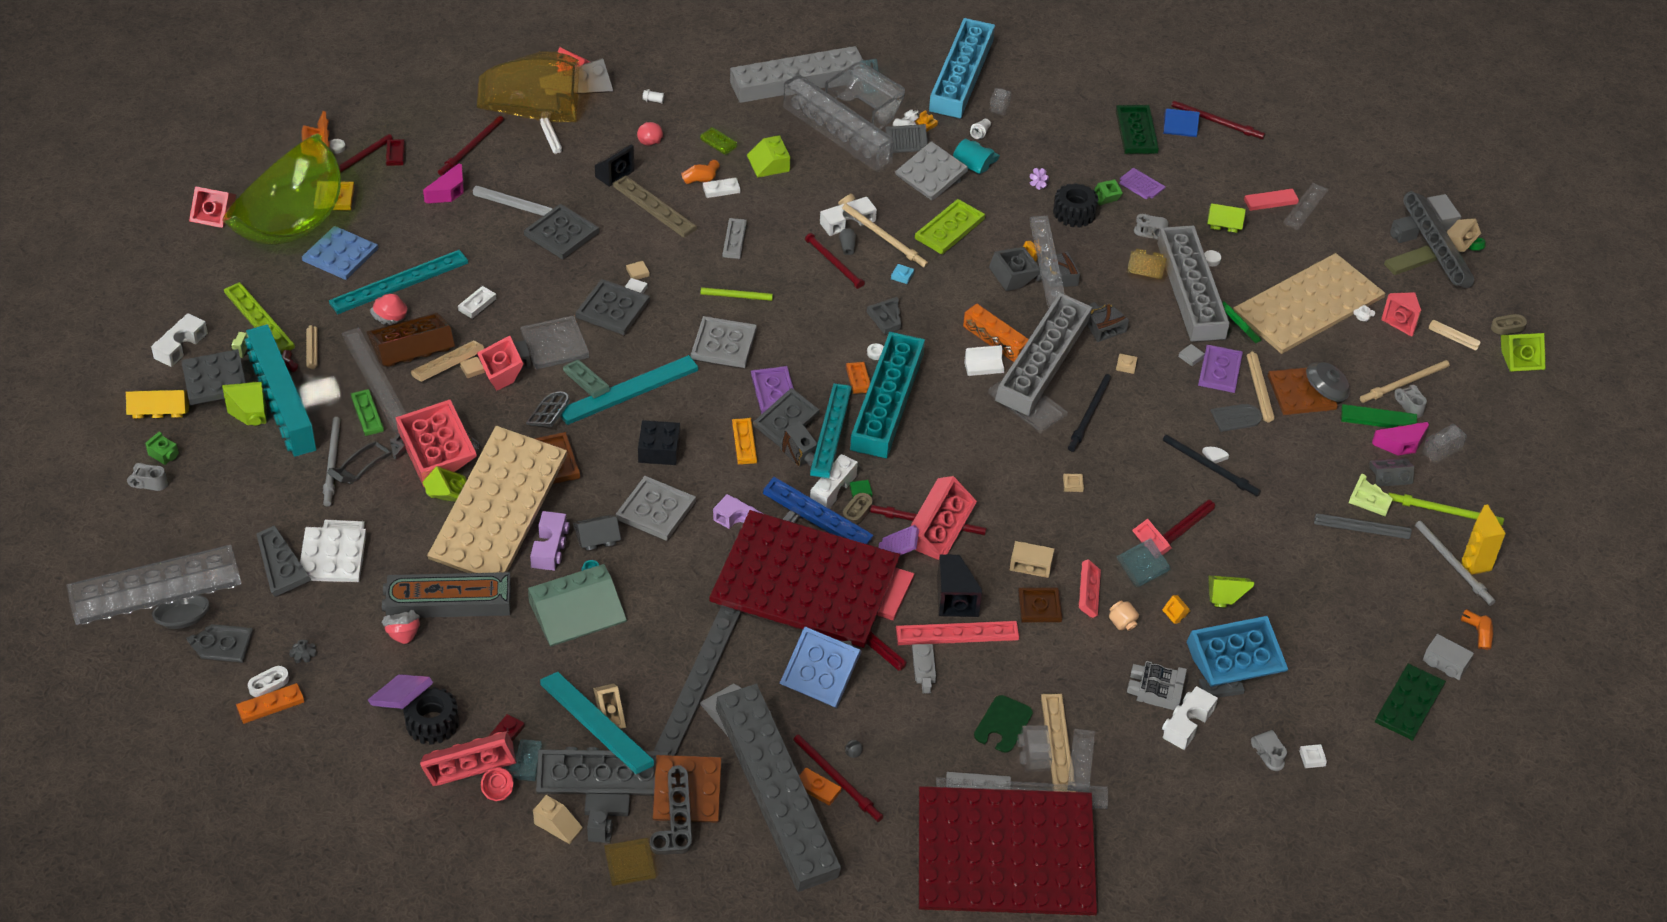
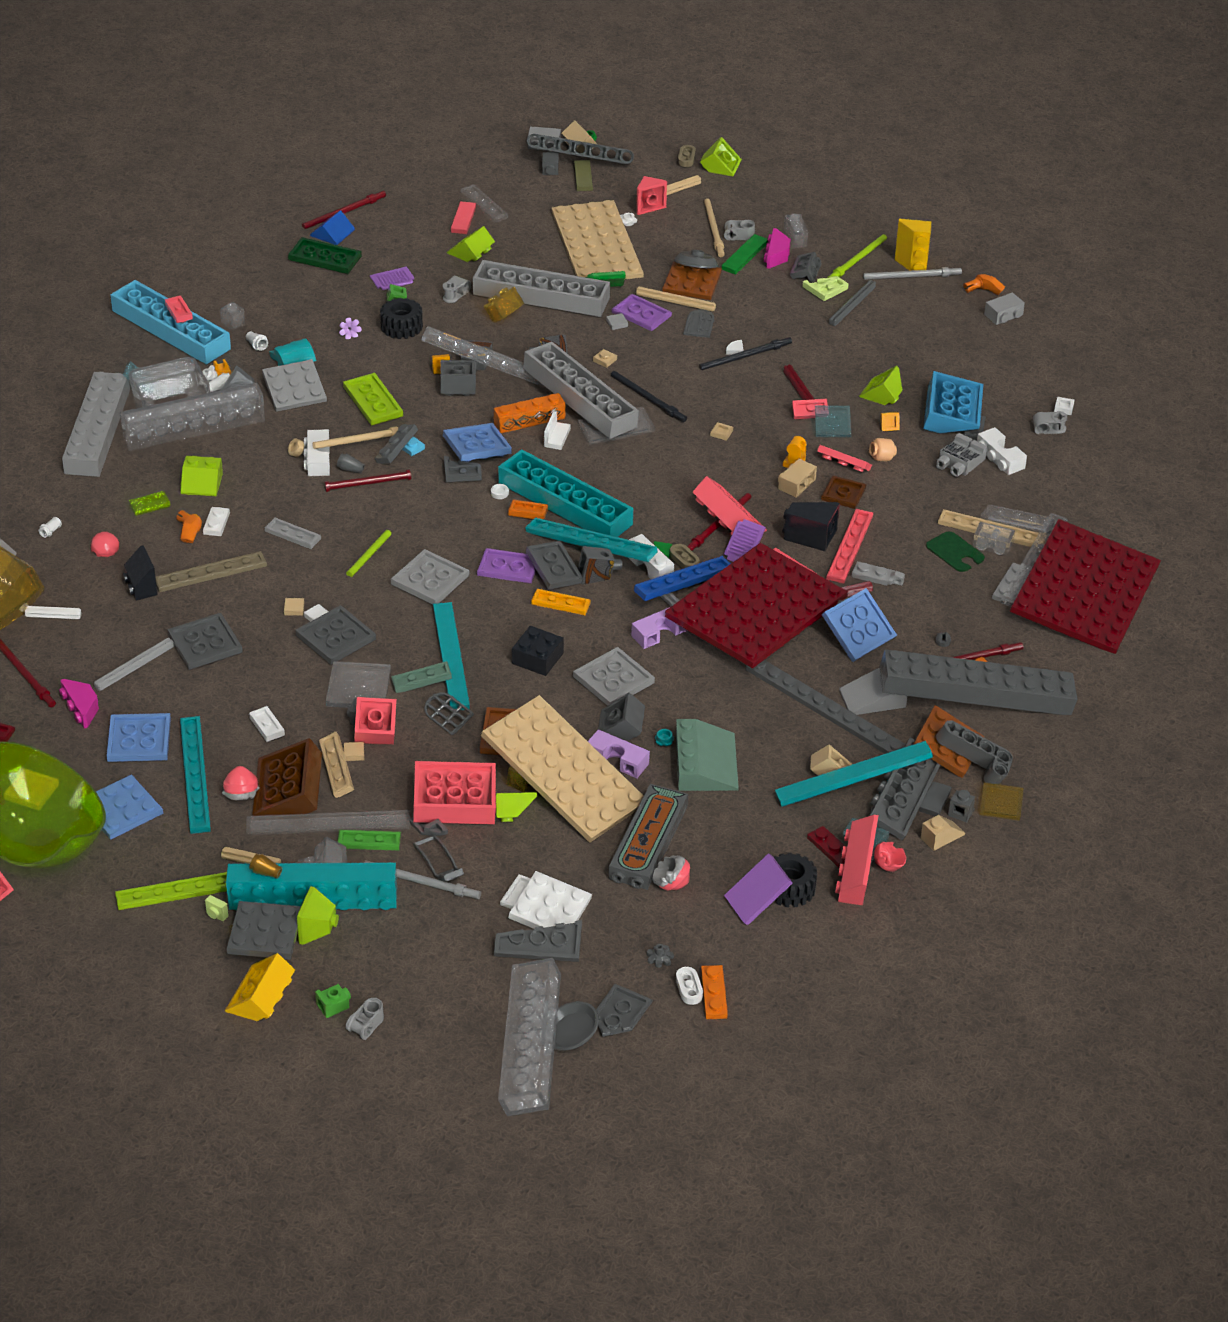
camera: 65 degrees left, 5 degrees down
(169, 348) = (184, 966): white arch -> none
(265, 343) = (263, 865): none -> pearl gold cone
(423, 233) = (138, 737): none -> medium blue plate
(892, 259) = (396, 443): none -> dark grey plate
(929, 311) = (477, 442): none -> medium blue plate
(965, 60) = (178, 309): none -> coral plate
(1063, 543) = (796, 451): none -> light orange leg
(1410, 701) = (1033, 343): dark green plate -> none

